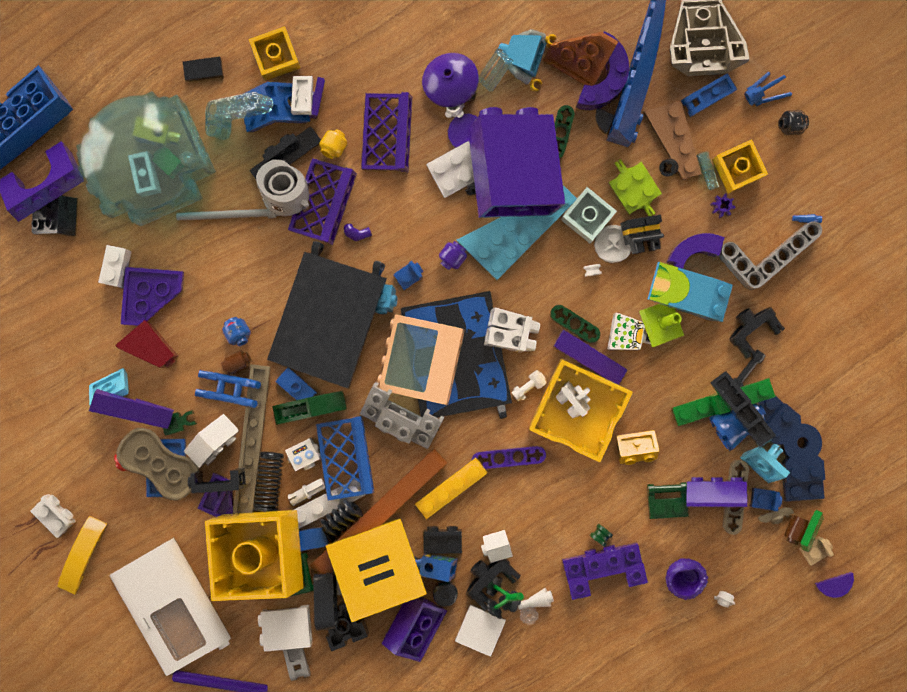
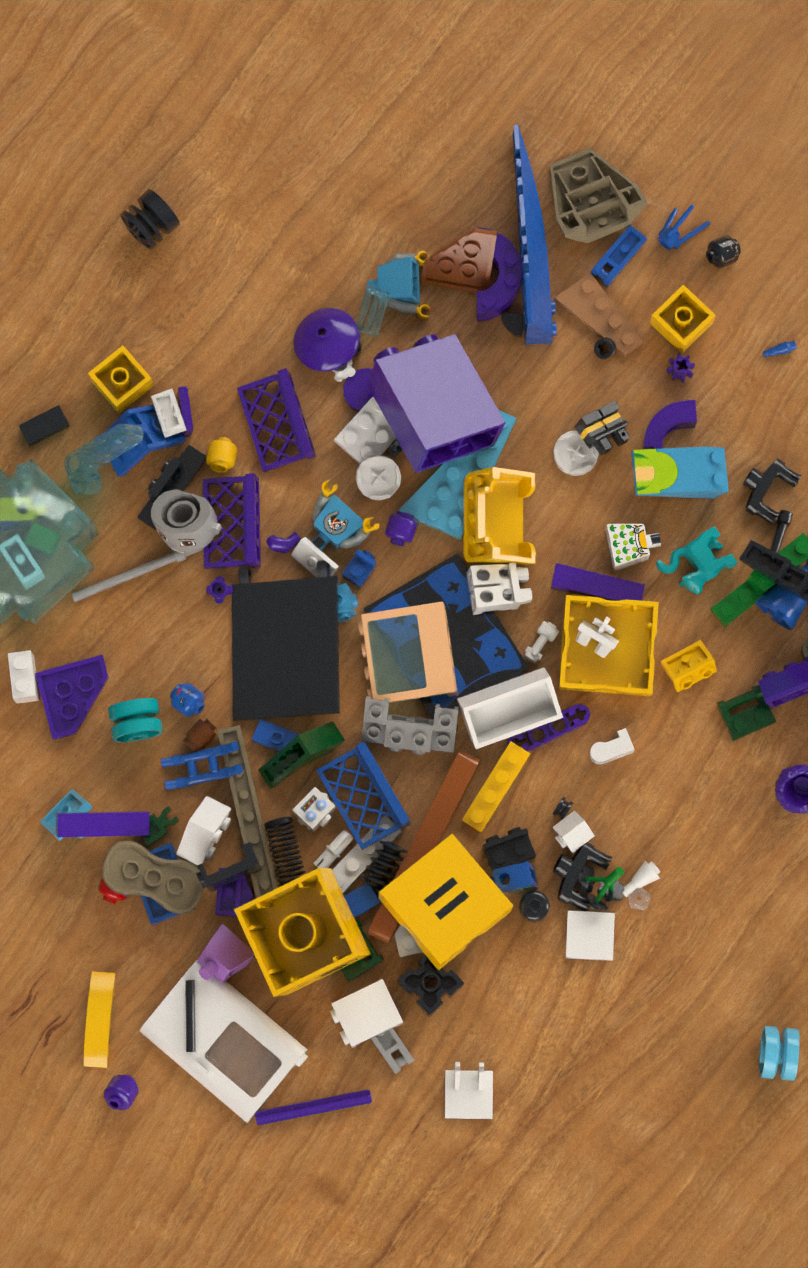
camera: 15 degrees left, 10 degrees down
(53, 515) = (50, 985): white bracket -> none
(76, 620) = (121, 1092): none -> dark purple head
(148, 345) = (92, 752): dark red slope -> none
(148, 582) = (190, 1015): none -> black bar
(188, 335) = (135, 720): none -> teal wheel
(189, 544) = (224, 956): none -> medium lavender torso
(293, 247) = (212, 589): none -> dark purple plate
(325, 601) = (401, 958): black beam -> none
(374, 252) = (308, 555): none -> white plate
(404, 232) = (337, 522): none -> torso
(414, 628) = (513, 959): dark purple slope -> none
(450, 207) = (378, 477): none -> white tile
(484, 432) = (510, 708): none -> white piece
(496, 524) = (562, 808): none -> black bush
(530, 275) = (496, 516): none -> yellow windscreen
(552, 492) = (612, 750): none -> white leg
(559, 117) = (474, 337): dark green beam -> none
(560, 321) = (574, 549): dark green beam -> none
(588, 215) = (535, 430): light aqua brick -> none
(592, 270) = (563, 489): white bush -> none
(601, 535) = (686, 777): dark green wheel -> none
(601, 564) = (700, 808): dark purple bracket -> none
(635, 188) = (576, 384): lime plate -> none
(661, 324) = (662, 518): lime tile -> none
(680, 367) = (701, 558): none -> teal animal
(708, 170) = (649, 336): clear light blue axle -> none
(772, 259) = (759, 406): light grey beam -> none

